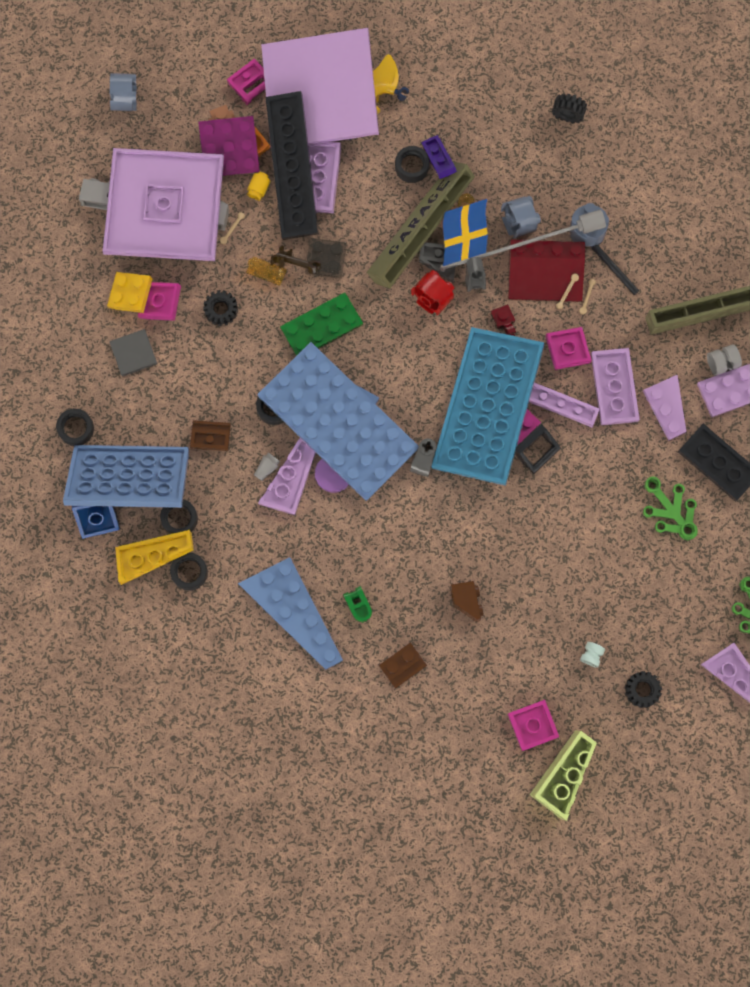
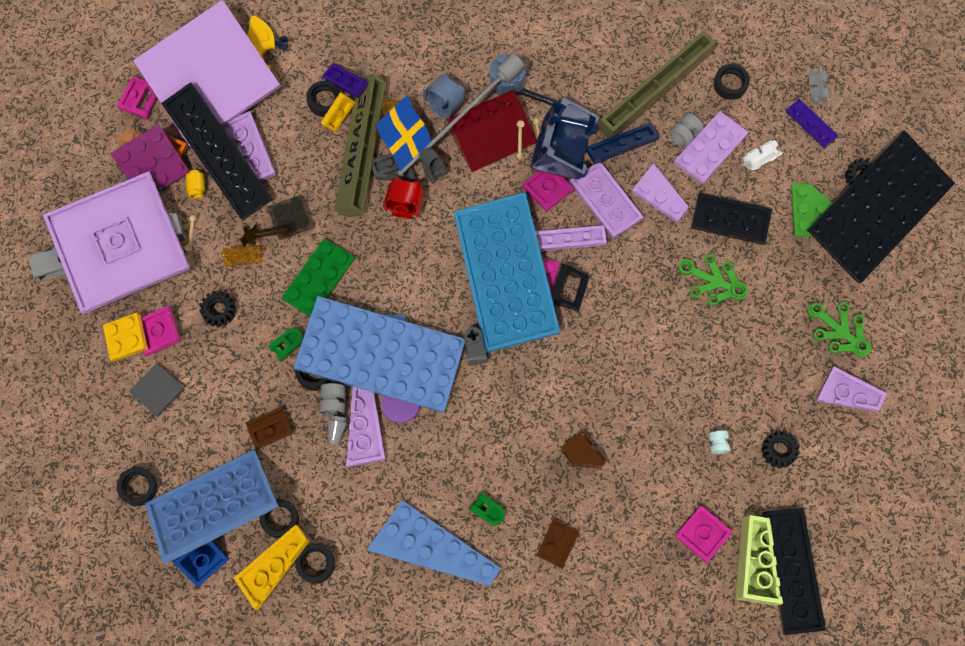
camera: 25 degrees left, 5 degrees down
(123, 92) = (26, 162): sand blue brick -> none
(270, 366) = (293, 340): none -> green plate
(277, 438) = (332, 399): none -> light grey wheel
(417, 183) = (337, 112): none -> yellow plate
(504, 319) = (478, 190): dark red plate -> none
(594, 800) = (796, 572): none -> black plate
(606, 312) = (564, 140): none -> dark blue windscreen
(658, 342) = (622, 143): none -> dark blue plate

